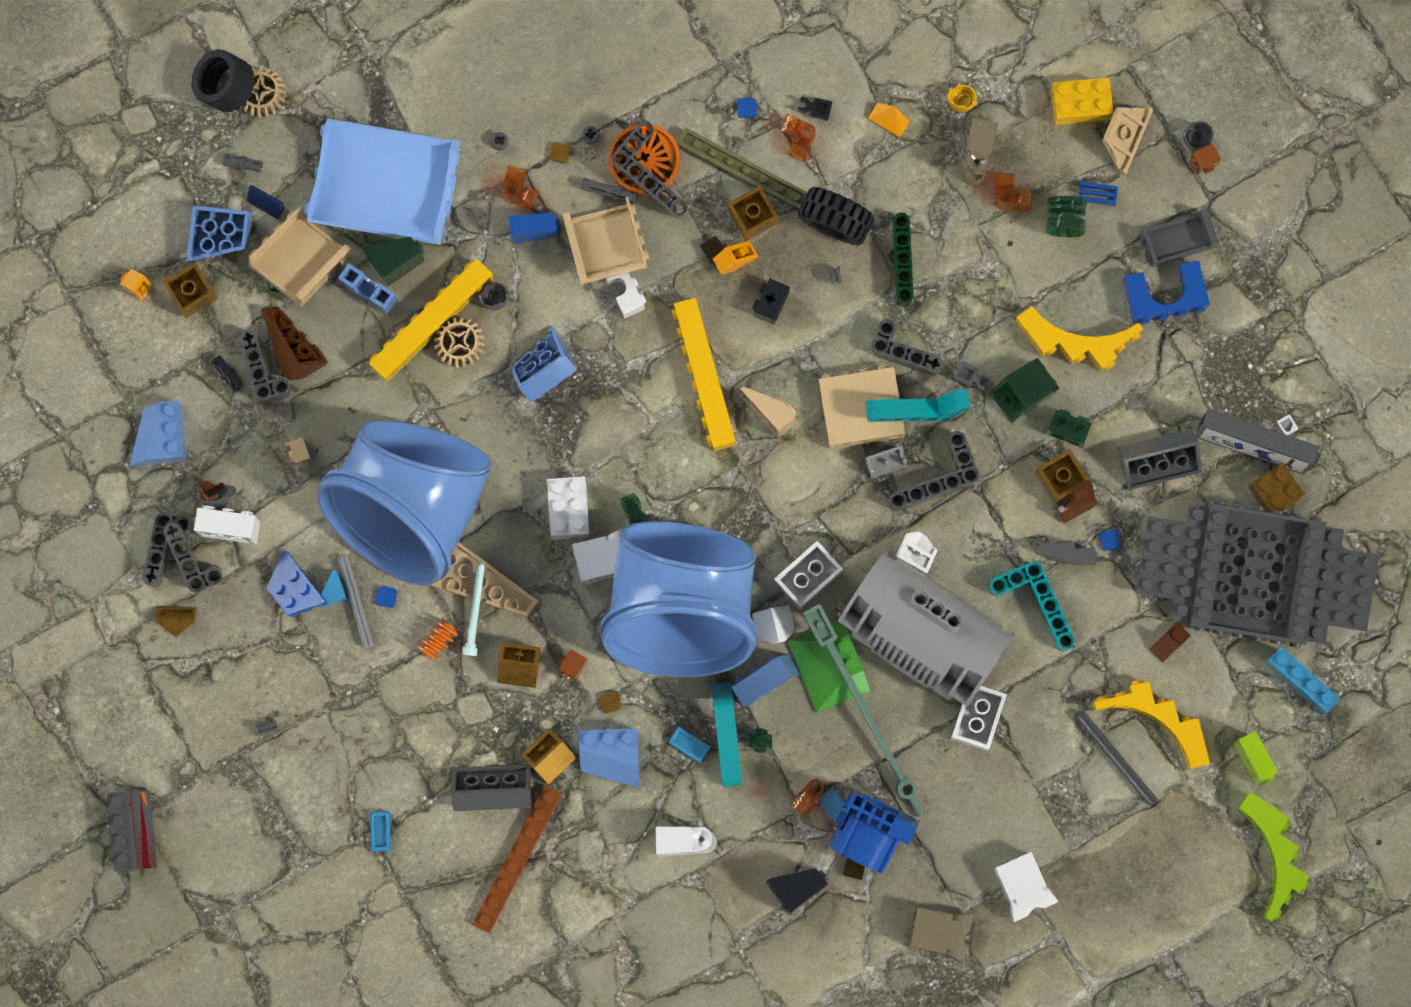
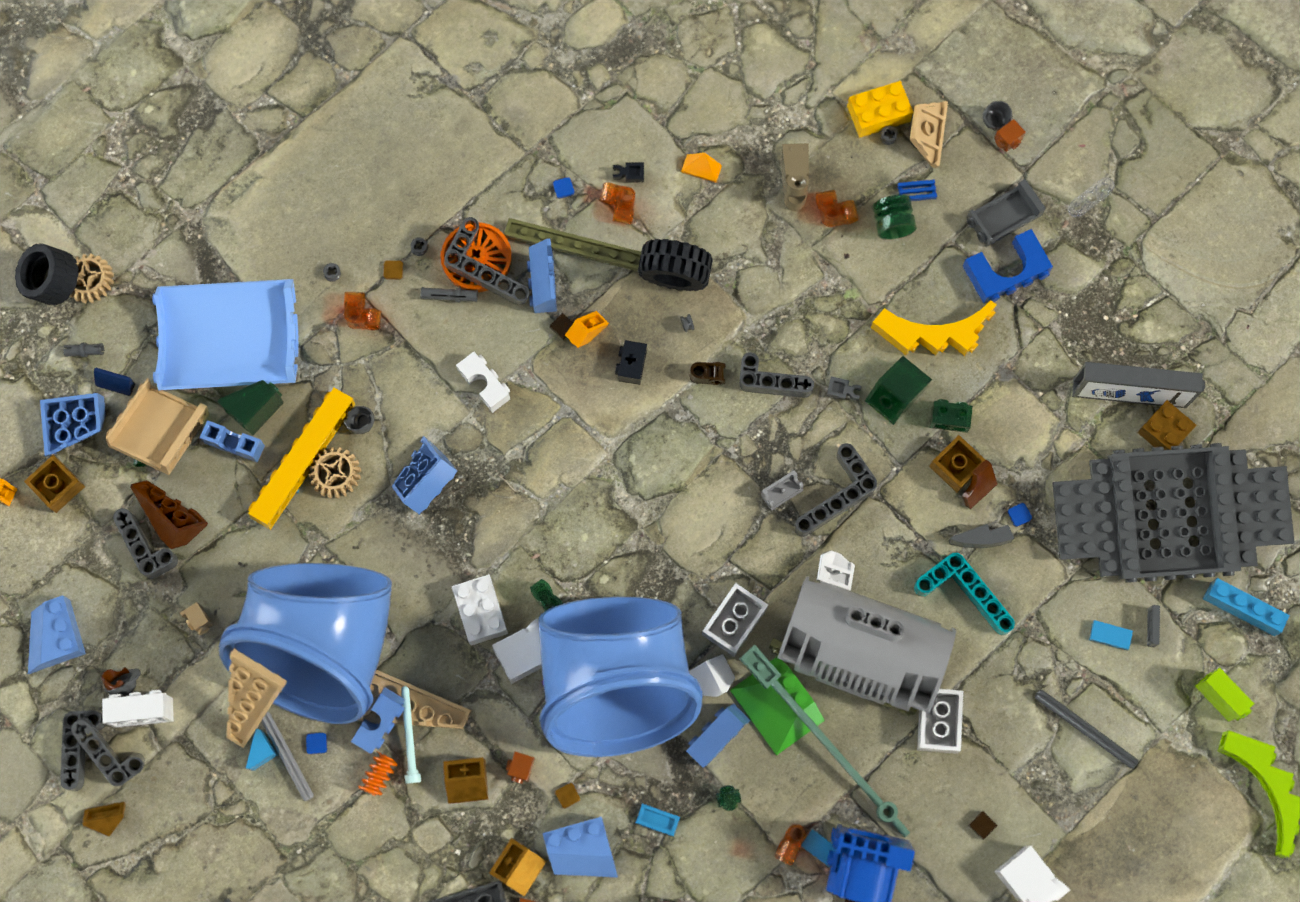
camera: 15 degrees left, 5 degrees down
(227, 373) = (109, 557): black pin -> none
(293, 588) = (219, 757): wing -> none
(337, 538) = (250, 696): none -> tan wing
(438, 601) = (370, 734): none -> medium blue arch
(533, 227) = (382, 344): blue slope -> none
(606, 243) = (458, 343): tan panel -> none
(703, 197) = (542, 277): none -> medium blue wedge
(704, 374) = (583, 447): yellow brick -> none
(726, 734) = (693, 799): teal beam -> none
(752, 213) = (593, 282): pearl gold brick -> none
(771, 411) = (656, 466): tan slope -> none
(844, 329) = (709, 373): none -> dark brown piece
(845, 406) = (745, 443): tan panel -> none
(902, 268) = (748, 285): dark green beam -> none
(918, 409) = (802, 431): teal beam -> none
(962, 98) = (766, 132): yellow hair -> none
(993, 823) = (982, 825): none -> dark brown tile
(1080, 133) = (892, 131): none -> dark grey bush
(1160, 459) = (1047, 425): dark grey slope -> none
(1165, 676) = (1111, 635): none -> dark azure tile
(1169, 642) = (1105, 600): reddish brown slope -> none
(1186, 733) = (1148, 687): yellow arch -> none
(1208, 677) = (1153, 626): none -> dark grey tile
(1287, 425) = (1157, 363): sticker -> none

